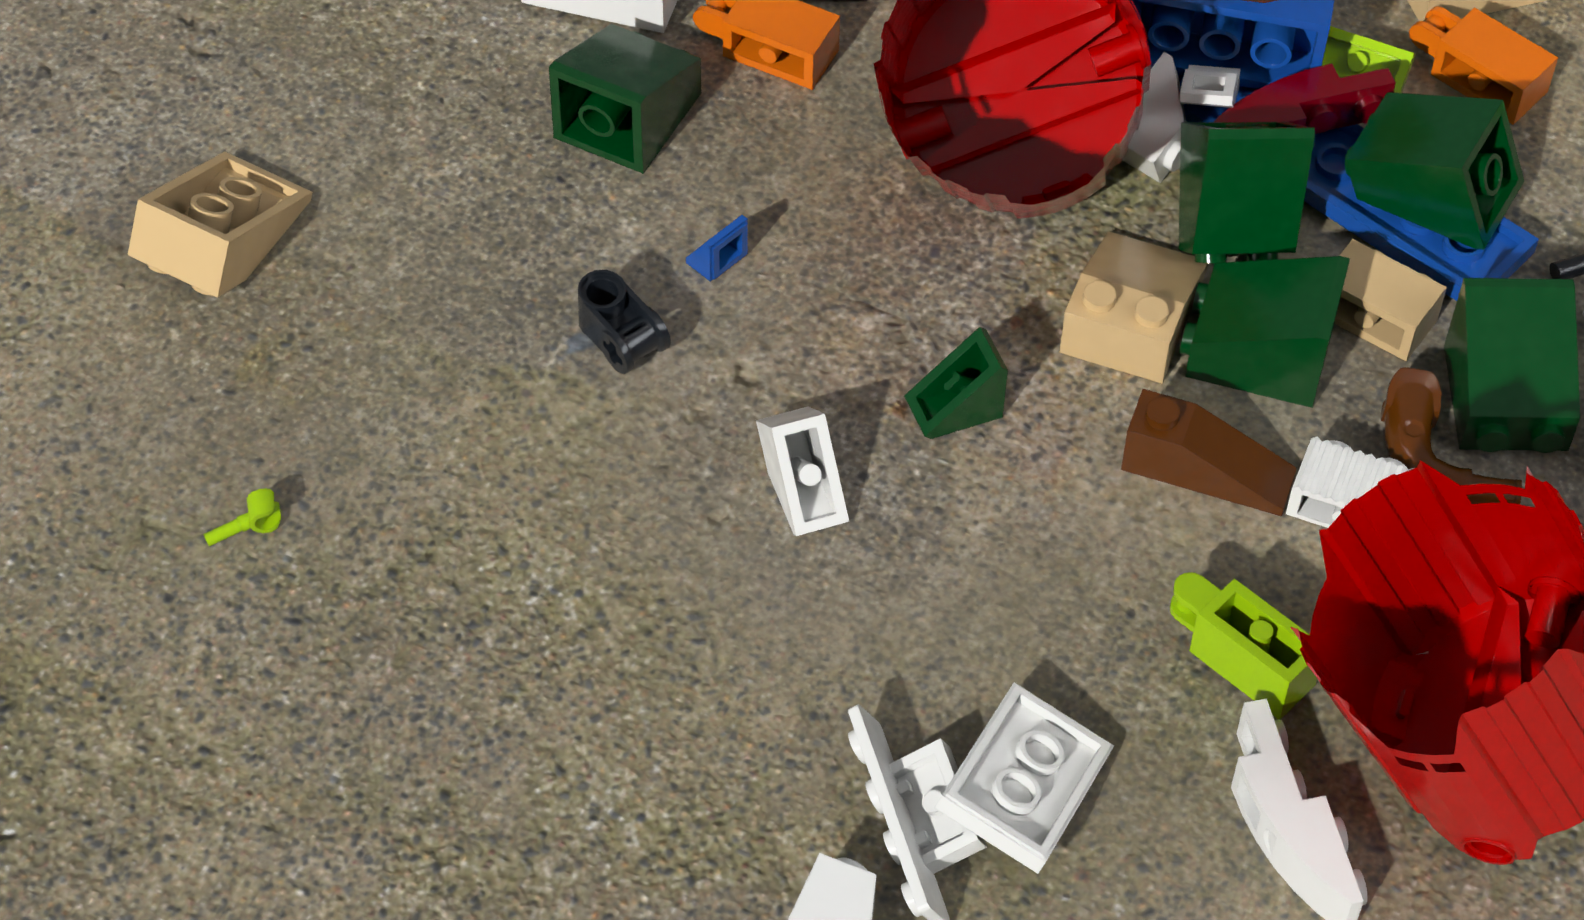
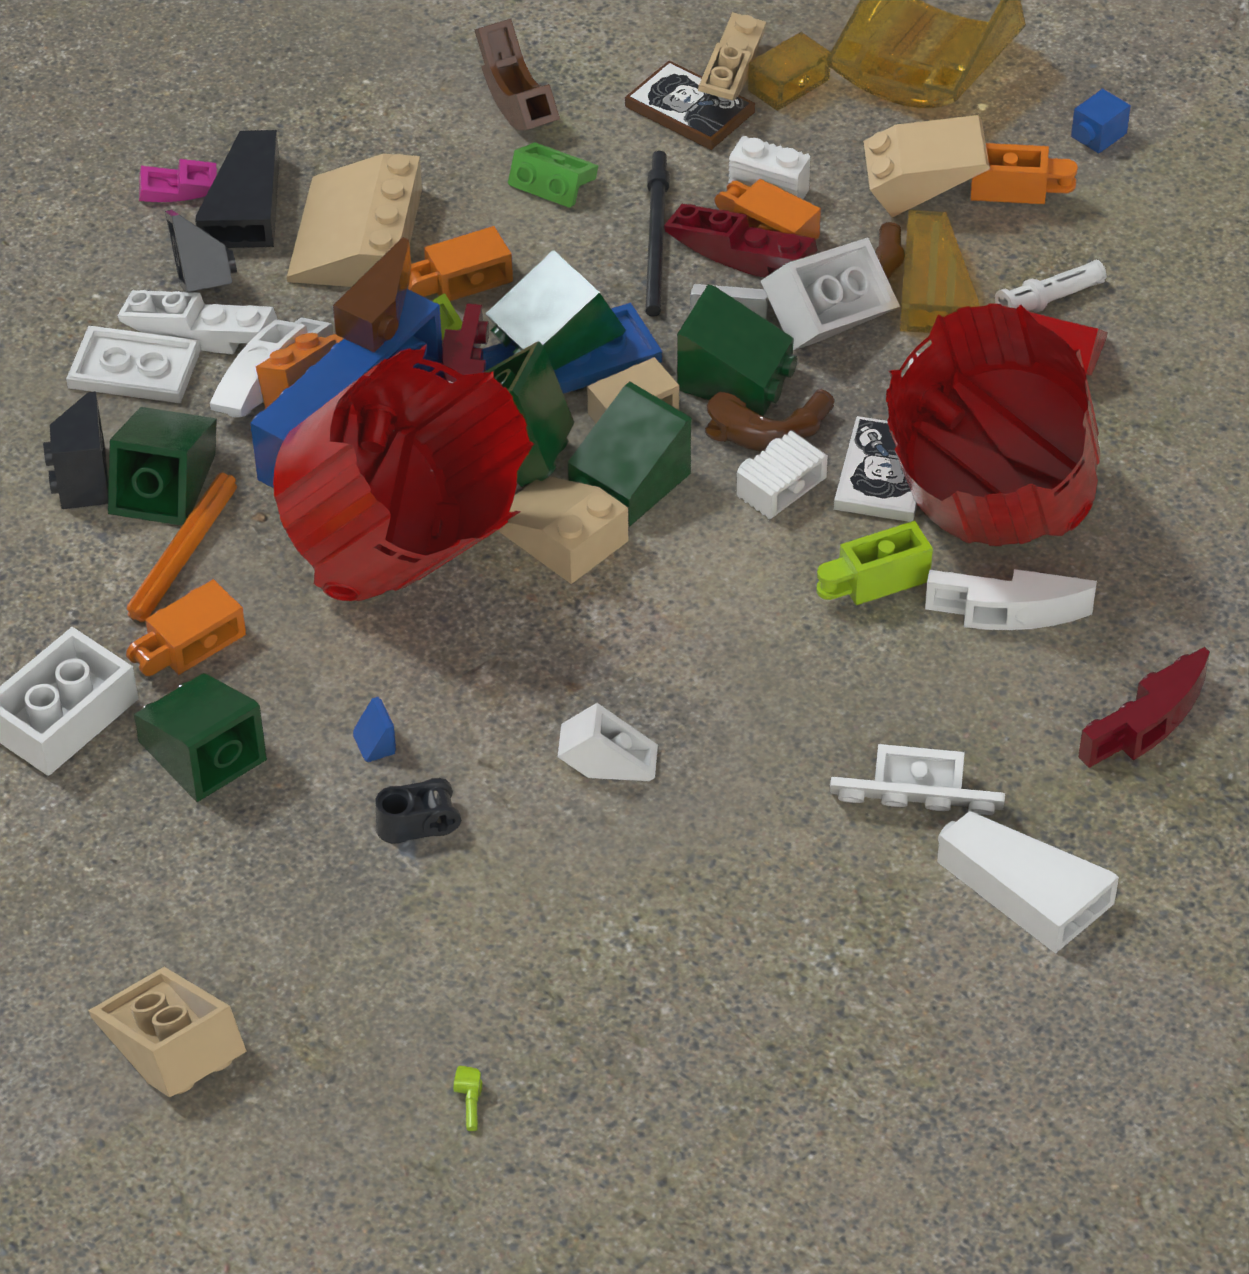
camera: 65 degrees left, 5 degrees down
(961, 389) = (587, 636): dark green slope -> none
(1024, 777) = (924, 714): white tile -> none
(1204, 454) = (706, 538): reddish brown slope -> none

